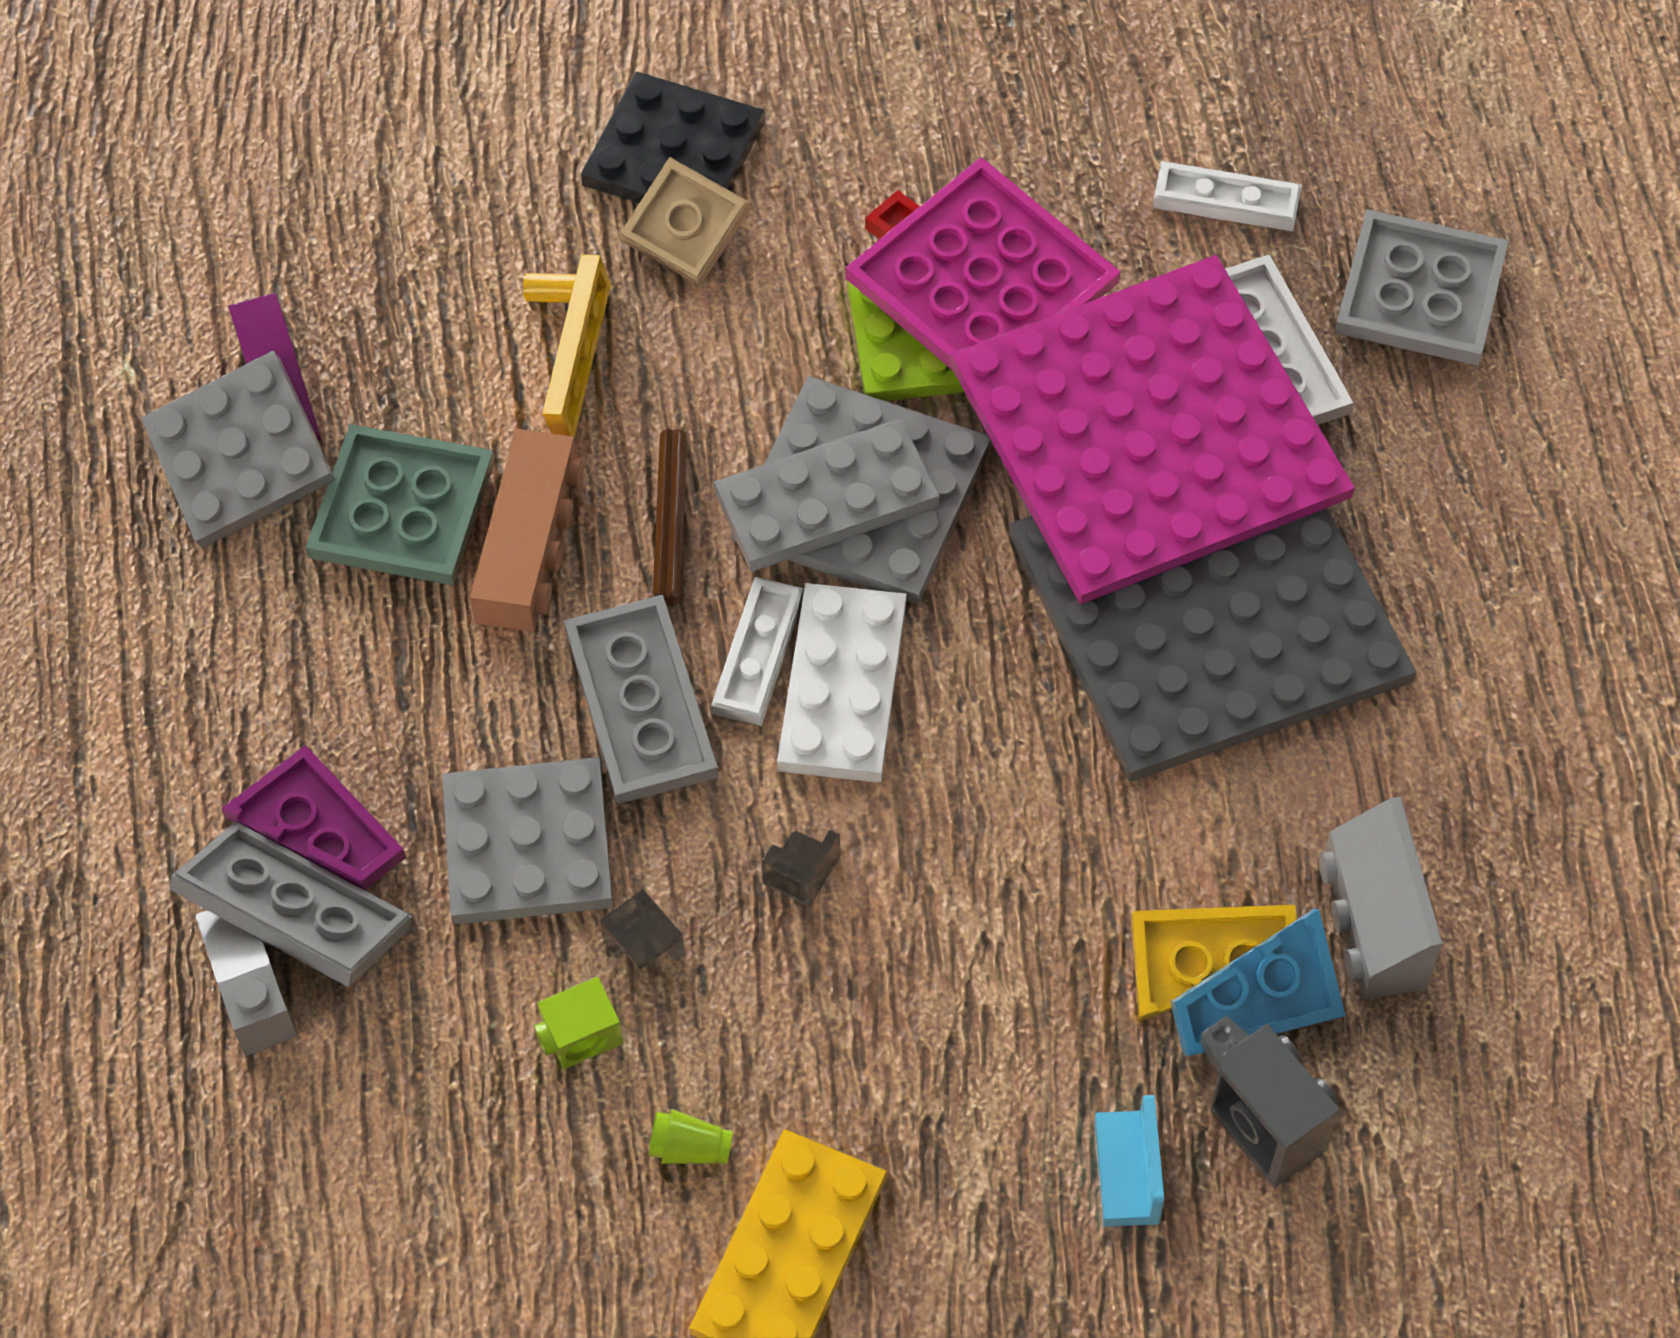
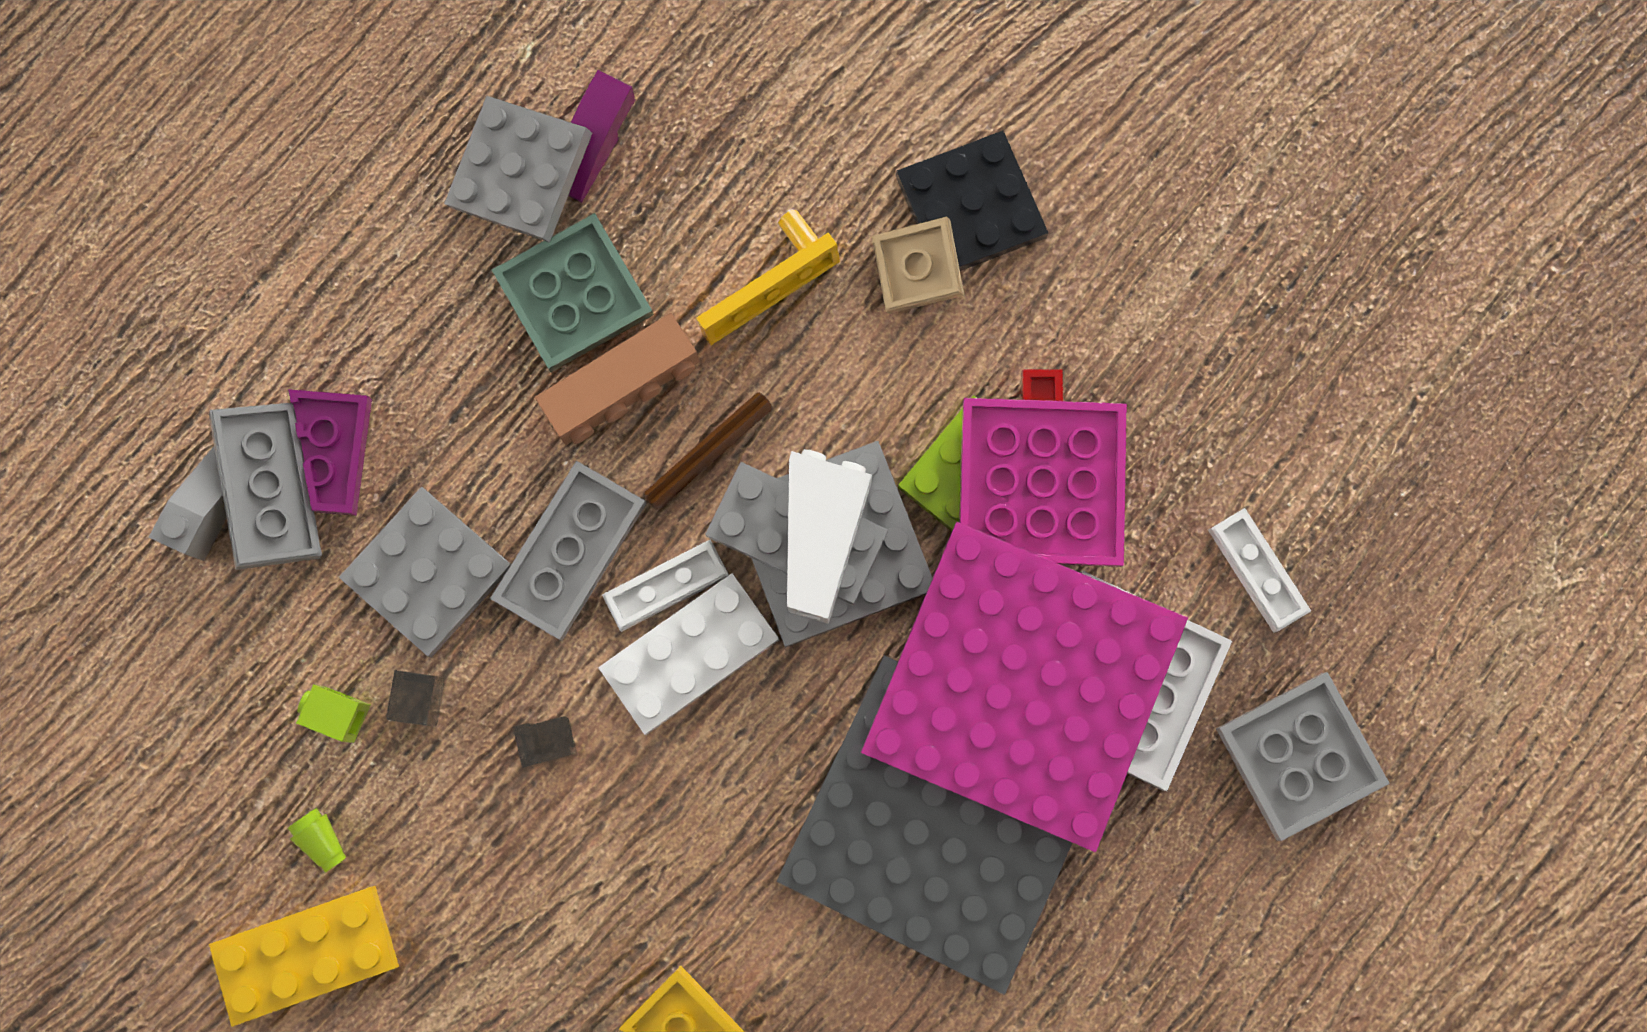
camera: 45 degrees right, 20 degrees up
(850, 454) = (822, 527): none -> white slope

